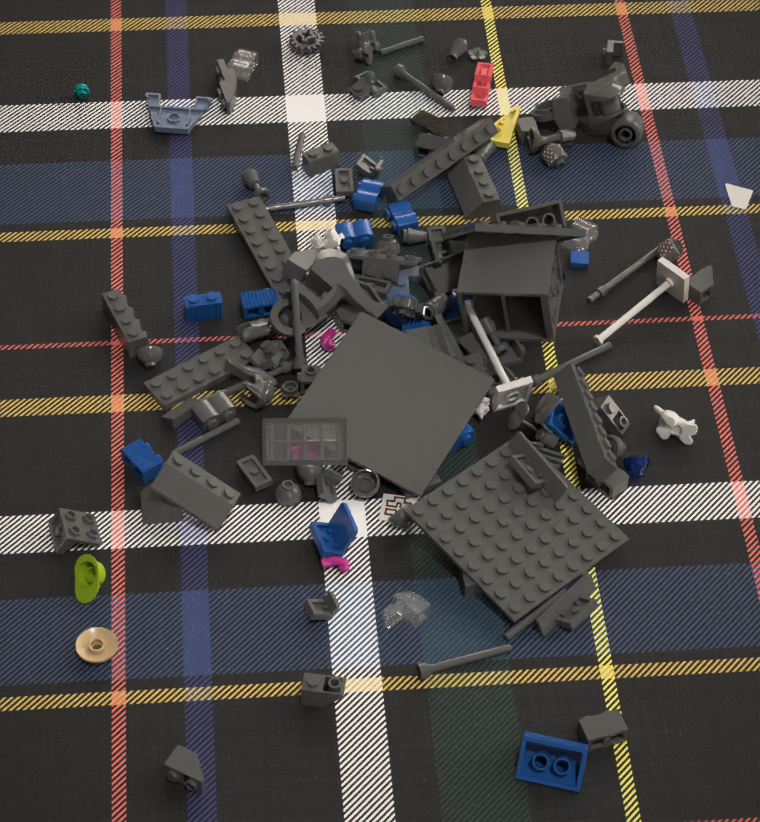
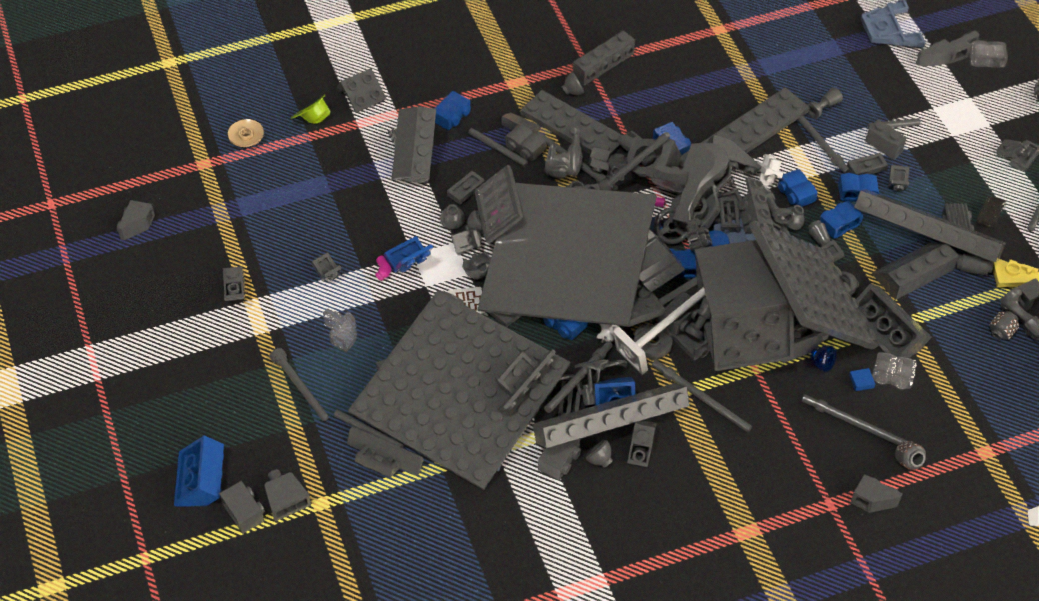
camera: 75 degrees right, 5 degrees up
(203, 307) = (647, 104): blue brick -> none
(504, 421) = (599, 354): none -> dark grey bar
(595, 692) = (285, 495): none -> dark grey torso
(636, 465) = (584, 478): clear blue brick -> none
(668, 279) = (858, 462): white tile -> none
(672, 424) = (652, 499): white animal -> none

